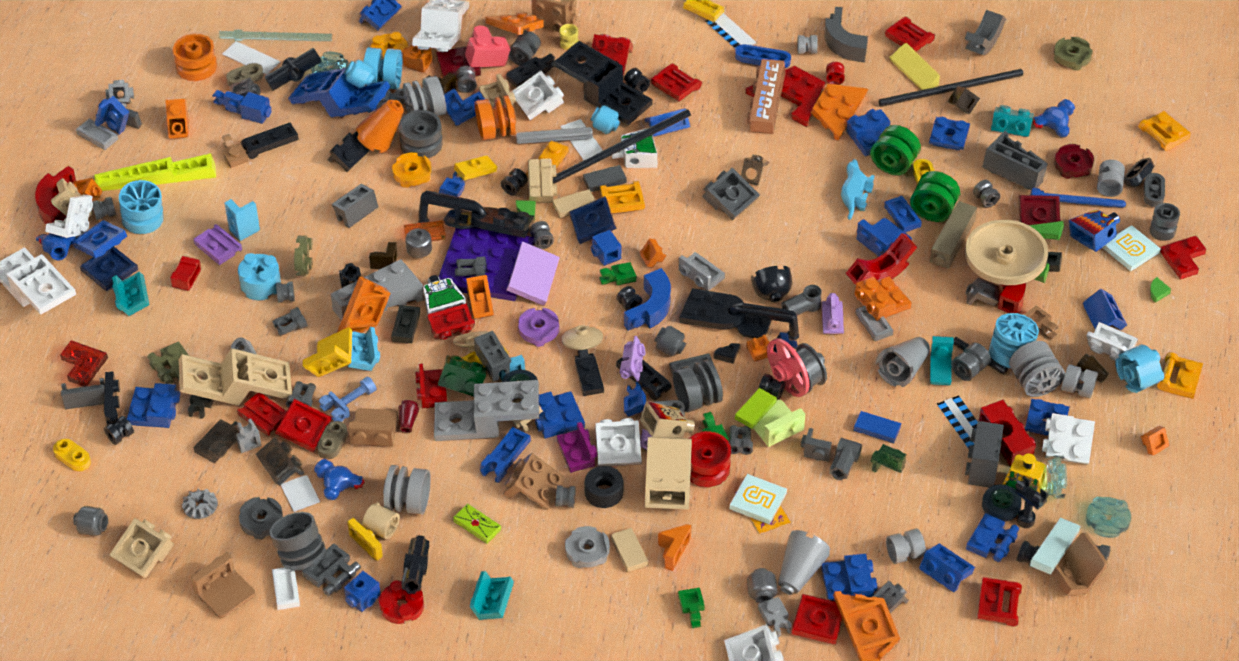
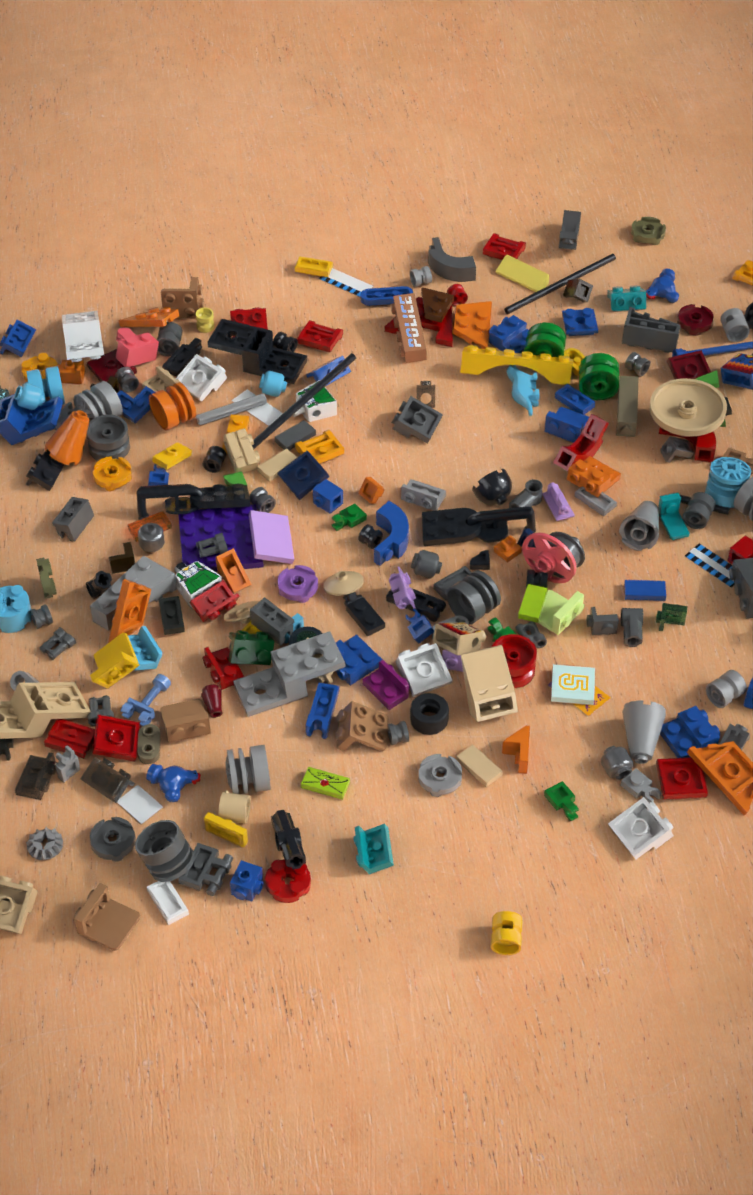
camera: 20 degrees left, 0 degrees up
(806, 78) = (436, 304): none -> reddish brown wing
(894, 177) = (553, 368): none -> yellow arch

